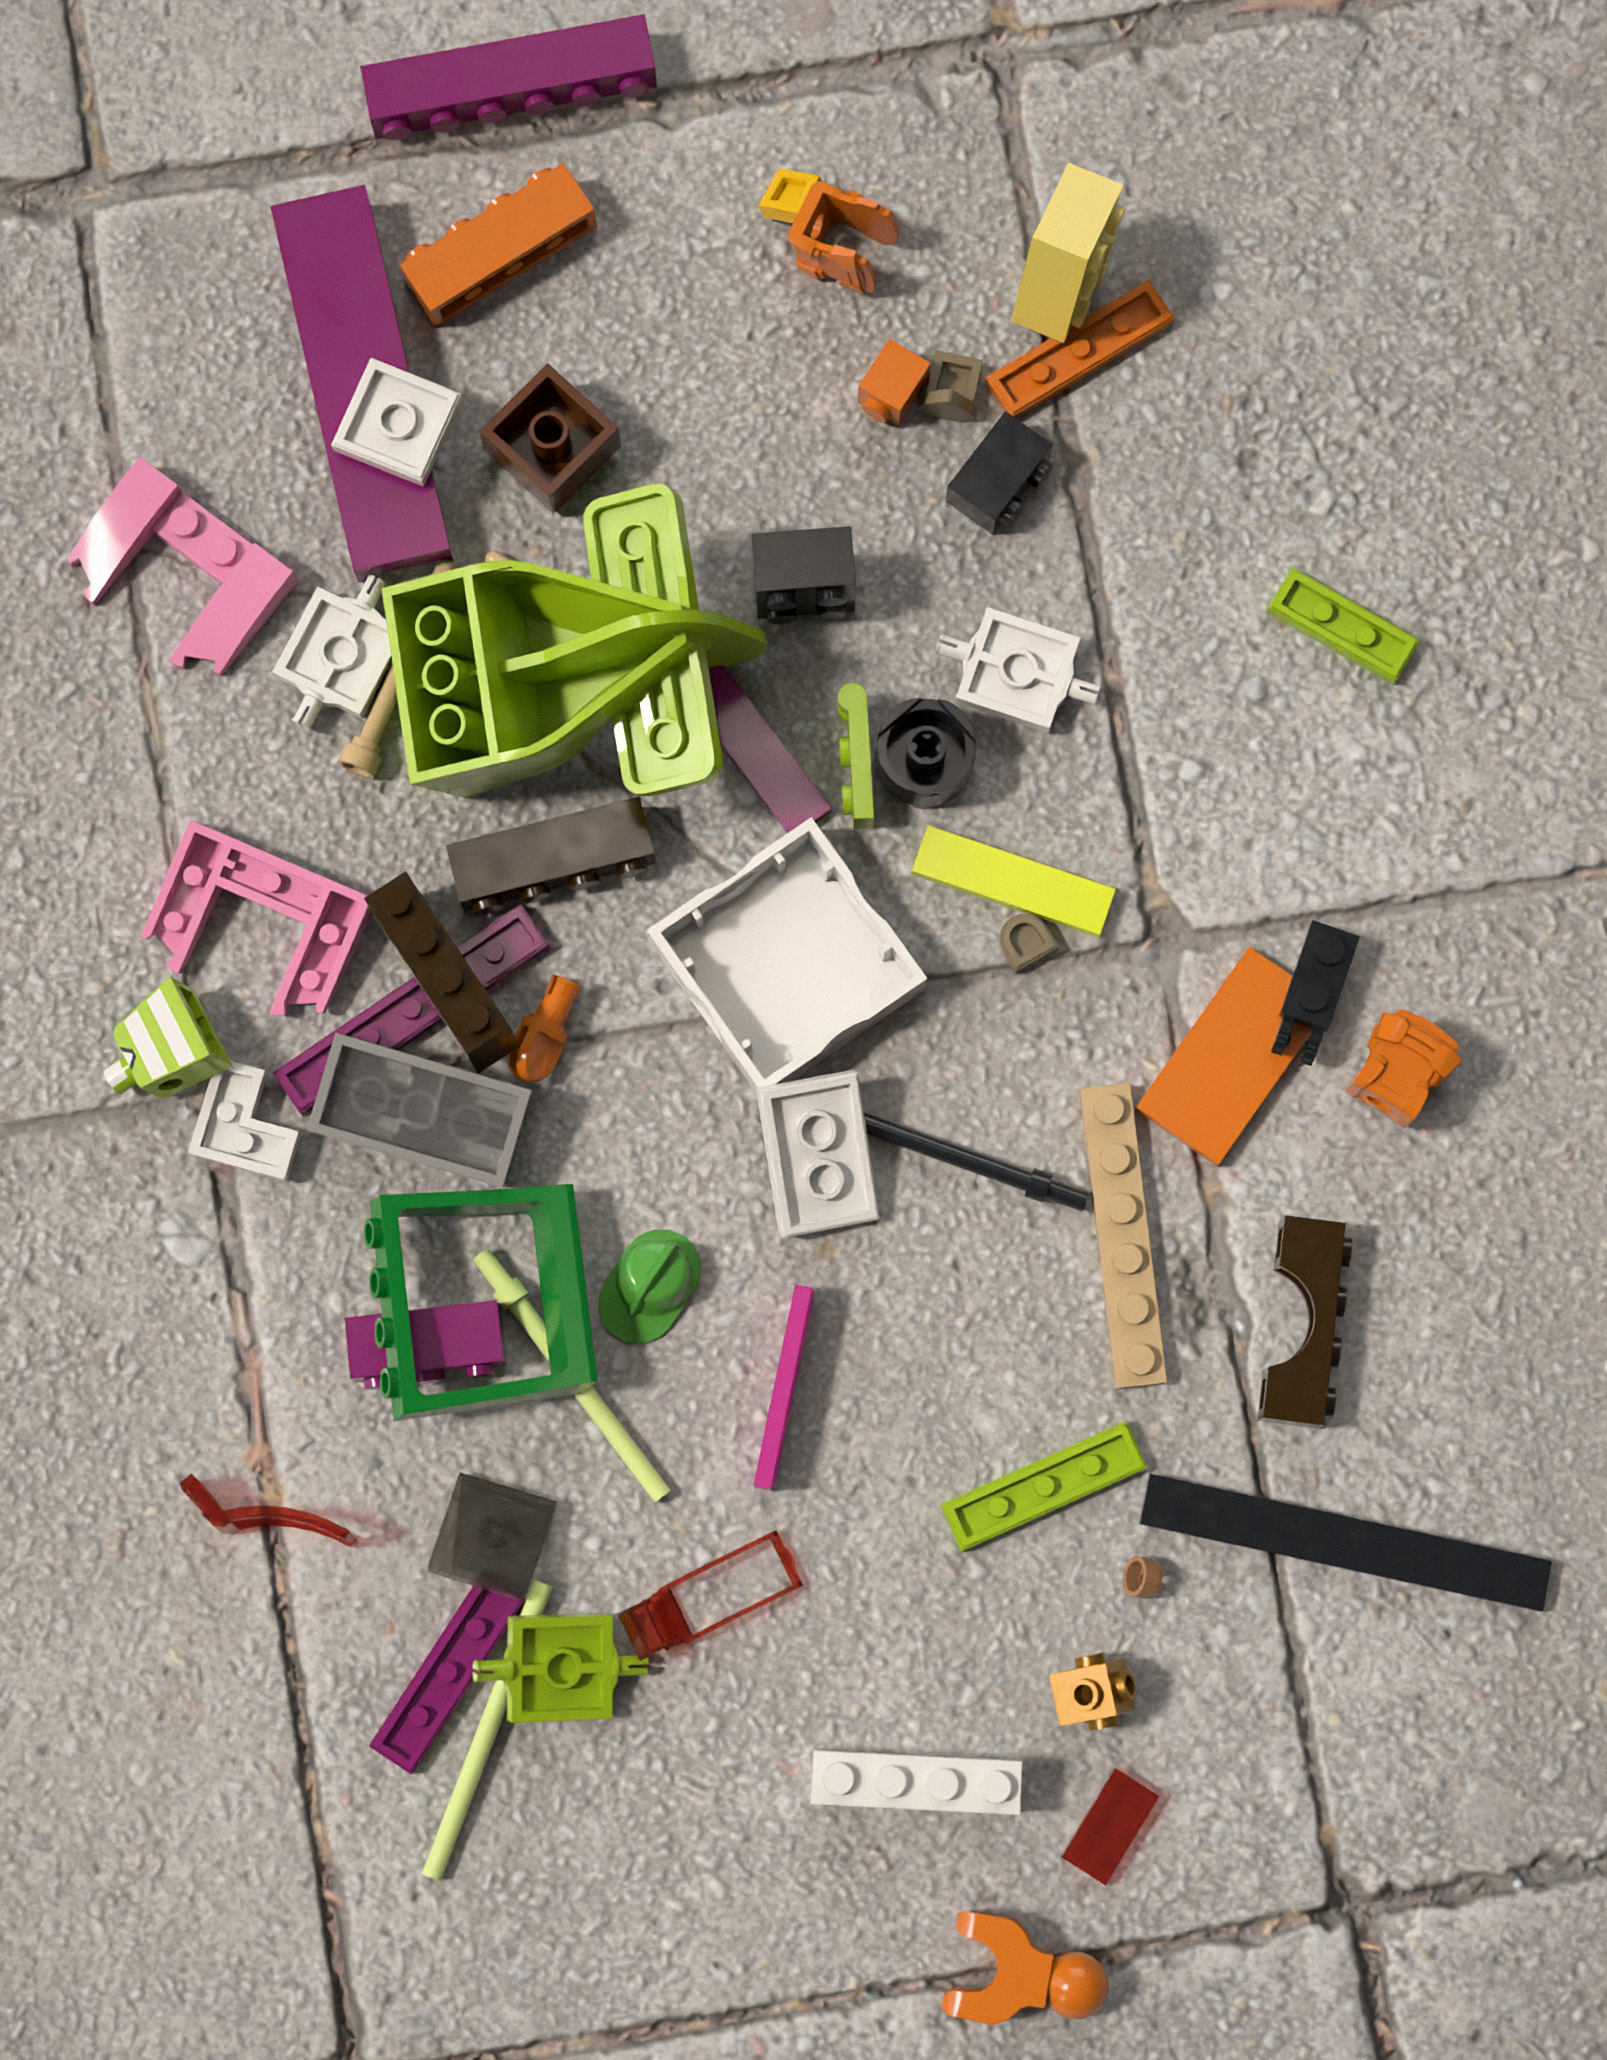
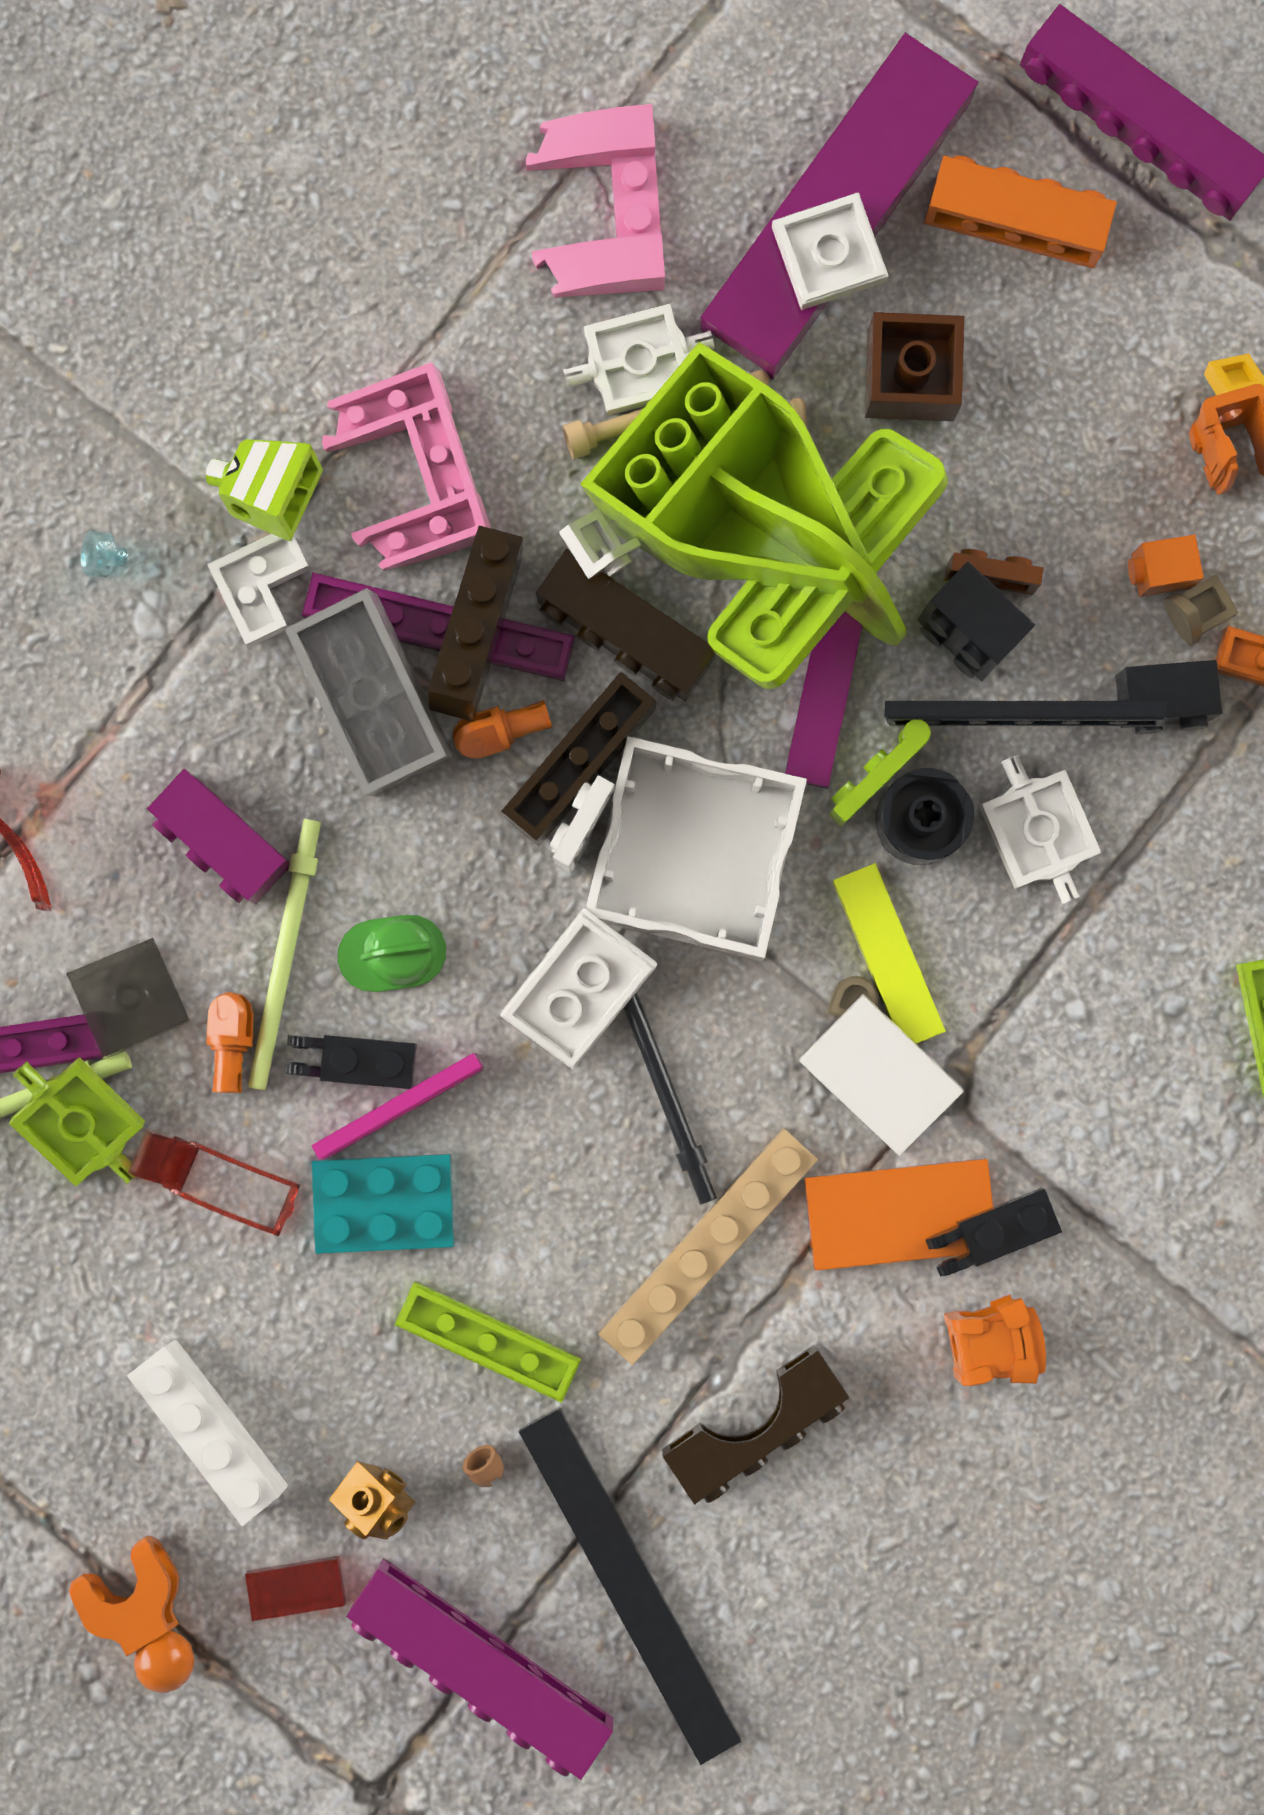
camera: 45 degrees right, 5 degrees up
(96, 1235) = (101, 554): none -> clear light blue tile
(468, 817) = (597, 545): none -> bracket
(561, 1287) = (330, 899): green windscreen -> none
(600, 1479) = (229, 1036): none -> orange arm
(629, 987) = (579, 758): none -> dark brown brick
(690, 1048) = (572, 840): none -> white plate
(714, 1392) = (357, 1061): none -> black hinge
(790, 510) = (1011, 575): none -> dark orange plate
(852, 1473) = (383, 1203): none -> teal plate
(914, 596) = (1027, 713): none -> black tile
(1105, 971) = (881, 1075): none -> white tile
(1309, 1724) = (481, 1670): none -> magenta brick

